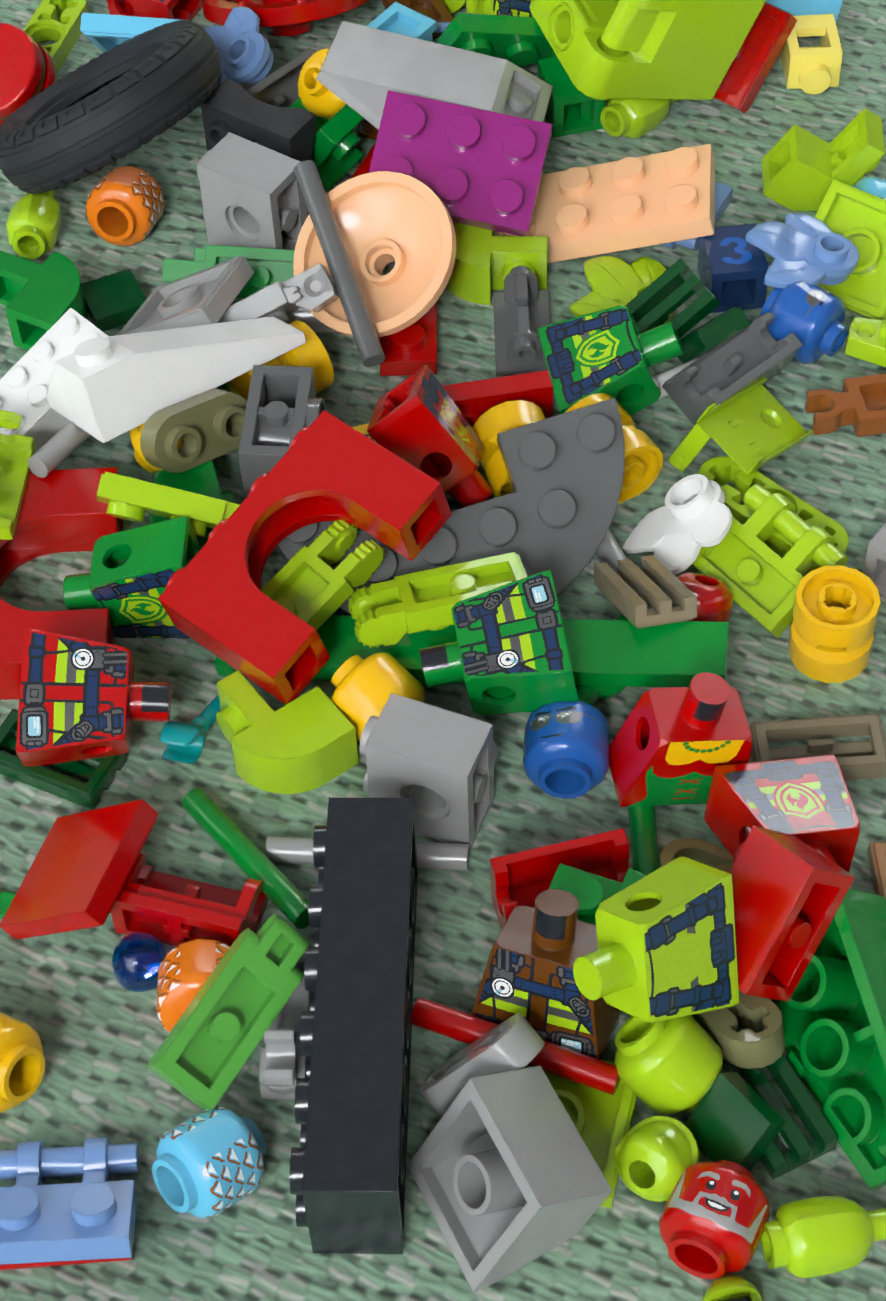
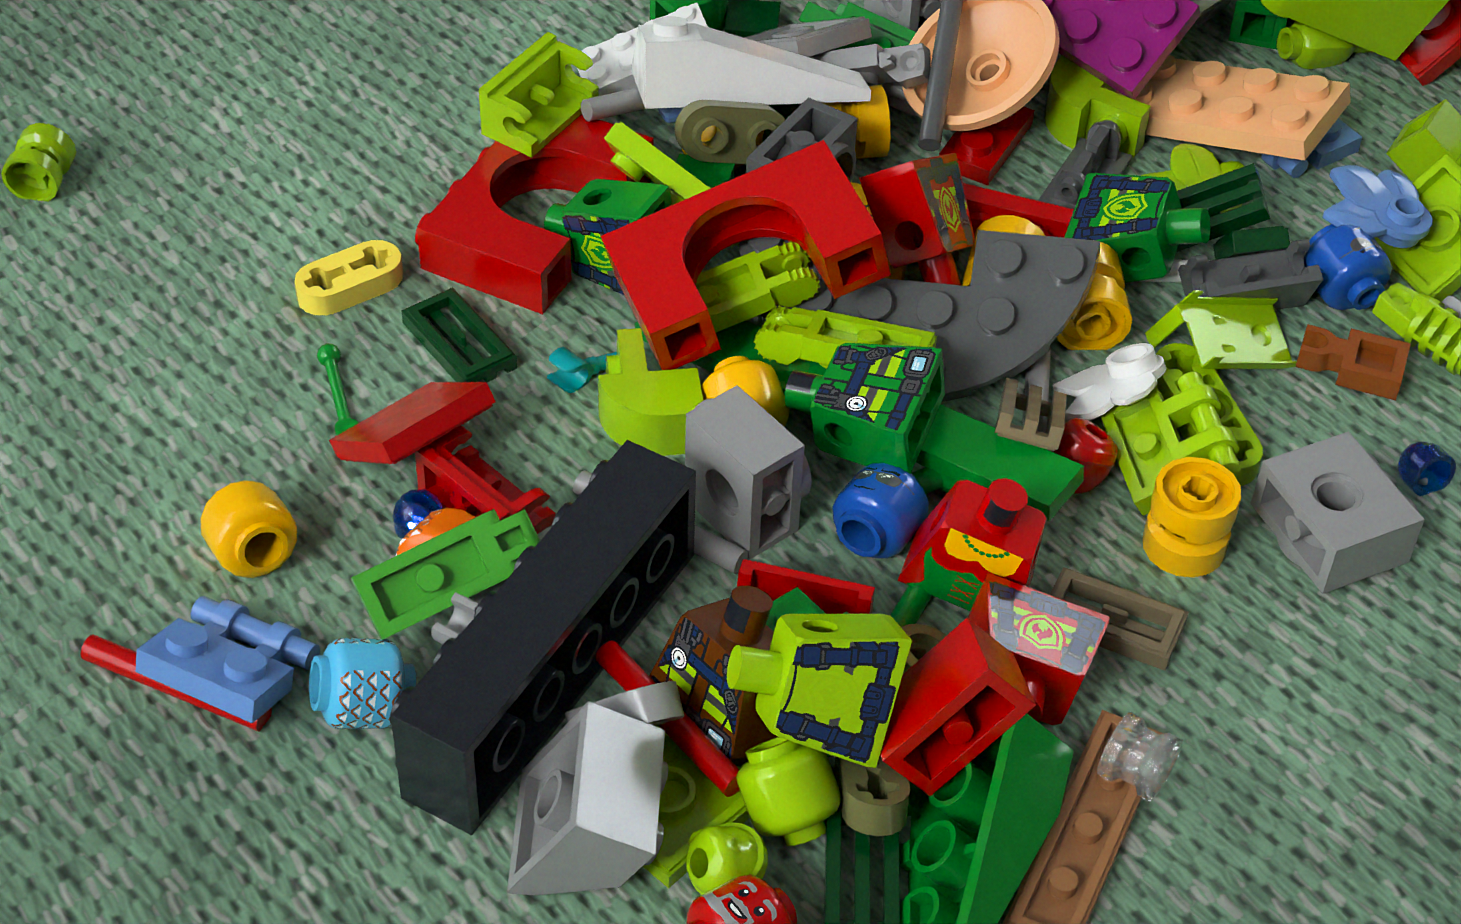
camera: 25 degrees right, 5 degrees down
(80, 699) = (495, 293): torso -> none
(248, 857) = (554, 459): green bar -> none
(733, 268) = (1306, 197): dark blue brick -> none
(734, 1122) = (812, 866): dark green tile -> none

